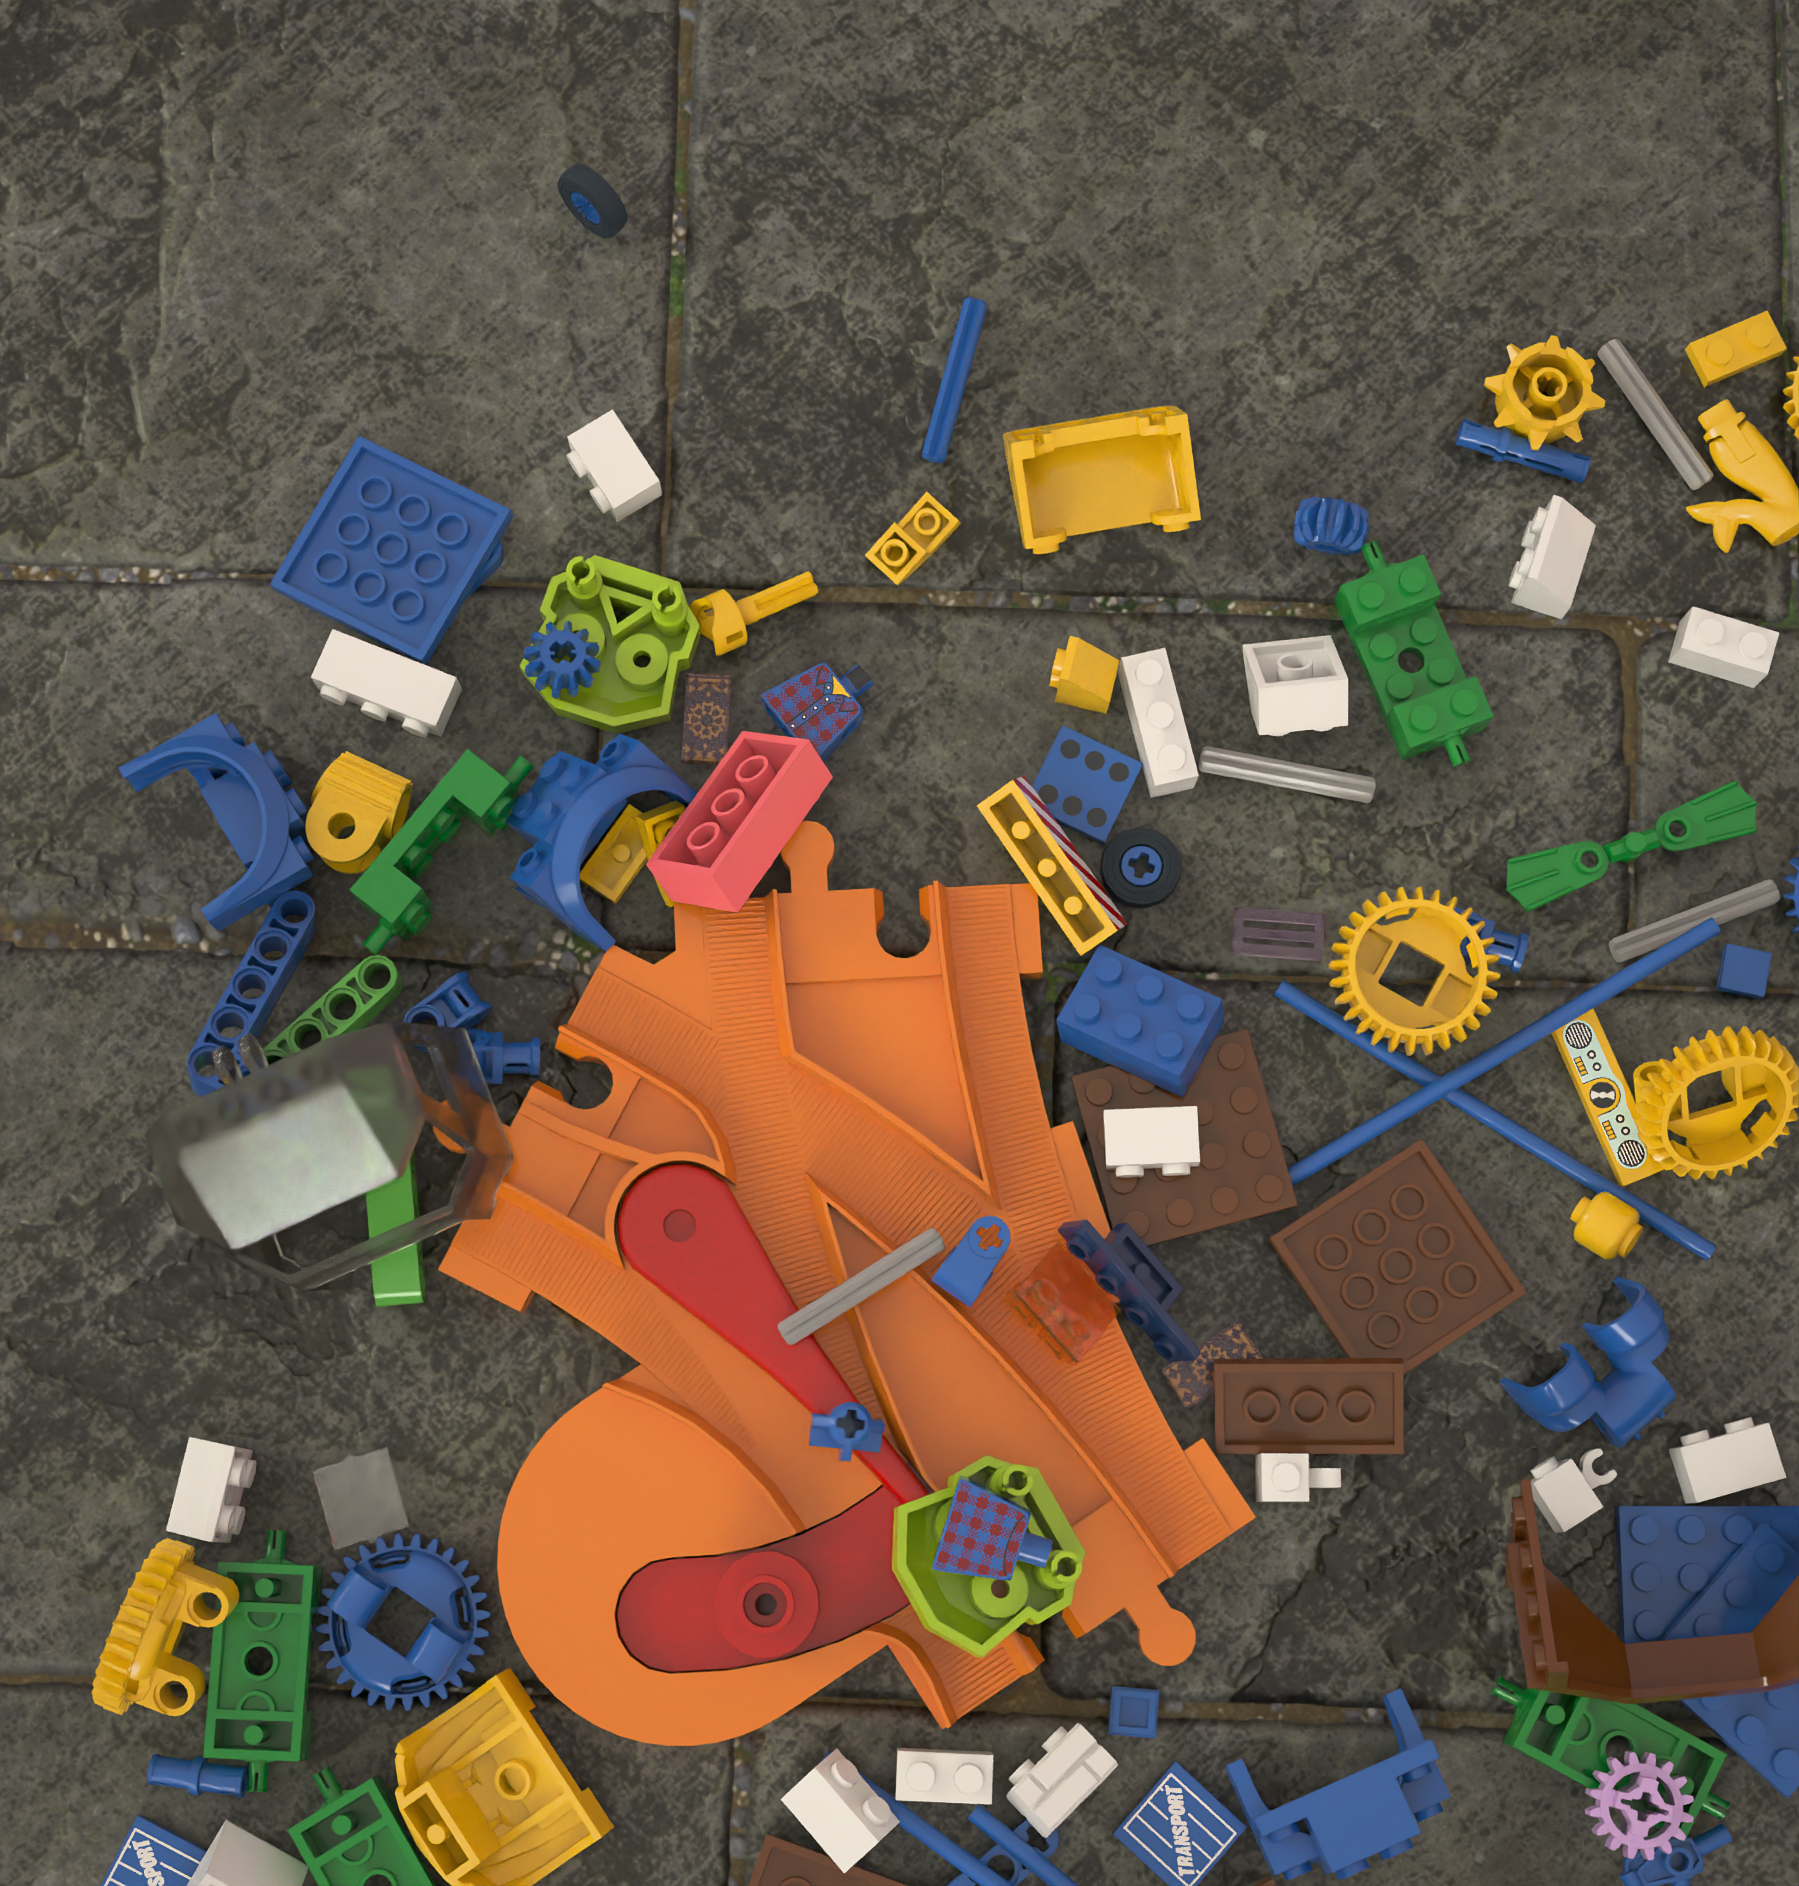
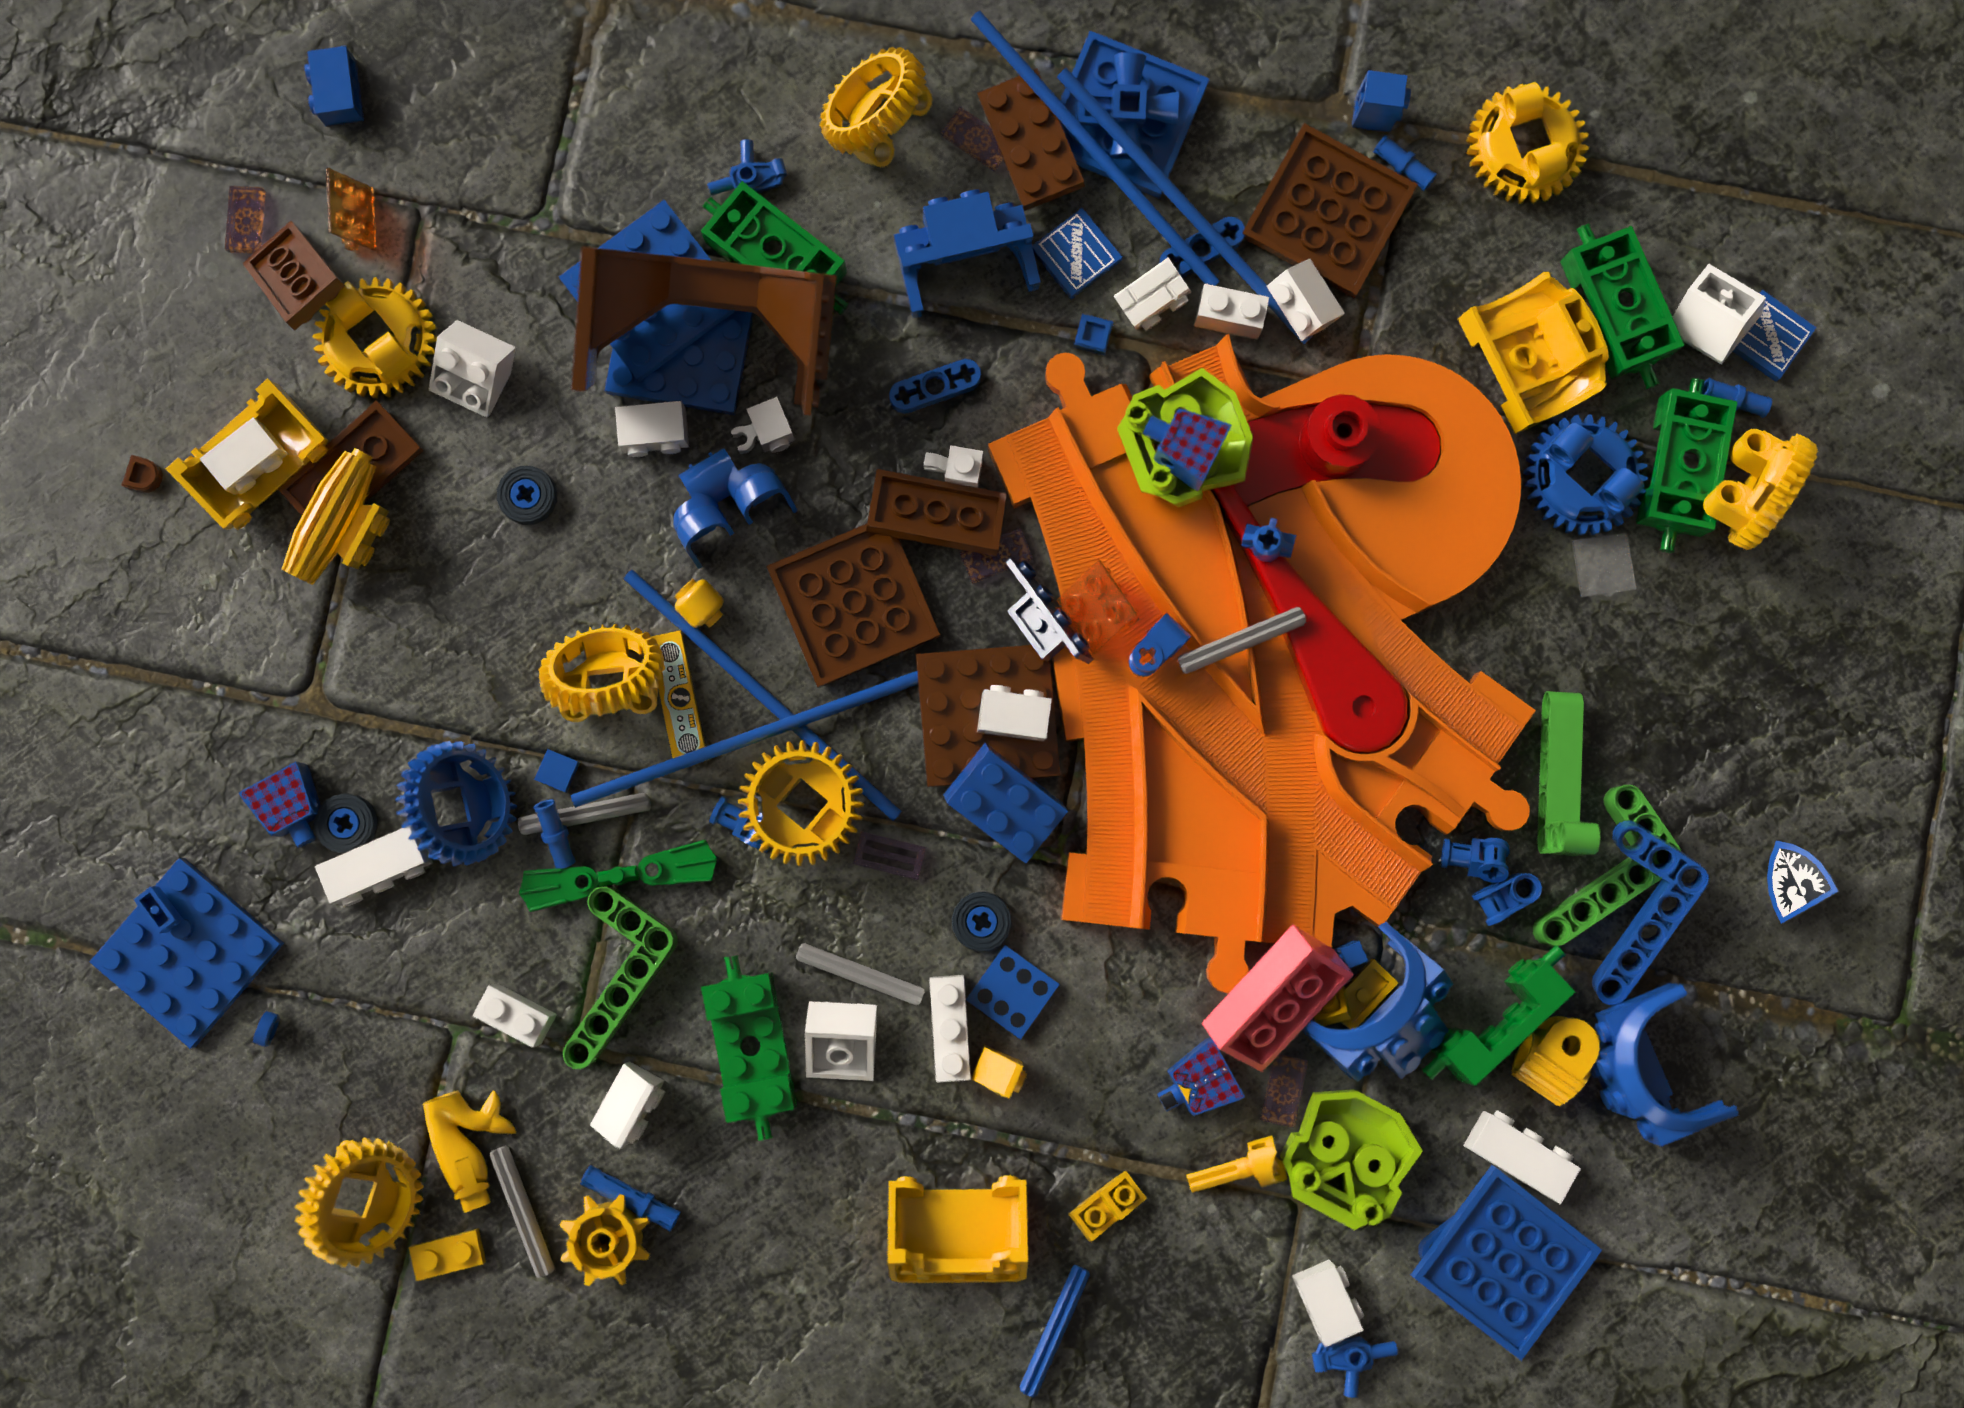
camera: 170 degrees left, 5 degrees up
(56, 1097) = (1797, 881): none -> shield
(211, 1491) = (1711, 583): white slope -> none
(322, 1134) = (1616, 795): clear smoke windscreen -> none
(559, 645) = (1390, 1159): blue gear -> none
(573, 406) = (1352, 1355): none -> blue piece
(646, 902) = (1351, 953): none -> blue piece
(1052, 864) = (1049, 930): yellow brick -> none
(1331, 525) = (790, 1159): blue gear -> none
(1368, 1567) = (960, 386): none -> blue beam
(1590, 718) = (625, 975): none -> bright green beam
(1637, 1823) = (763, 191): lavender gear -> none
(1728, 883) = (554, 833): none -> blue pin

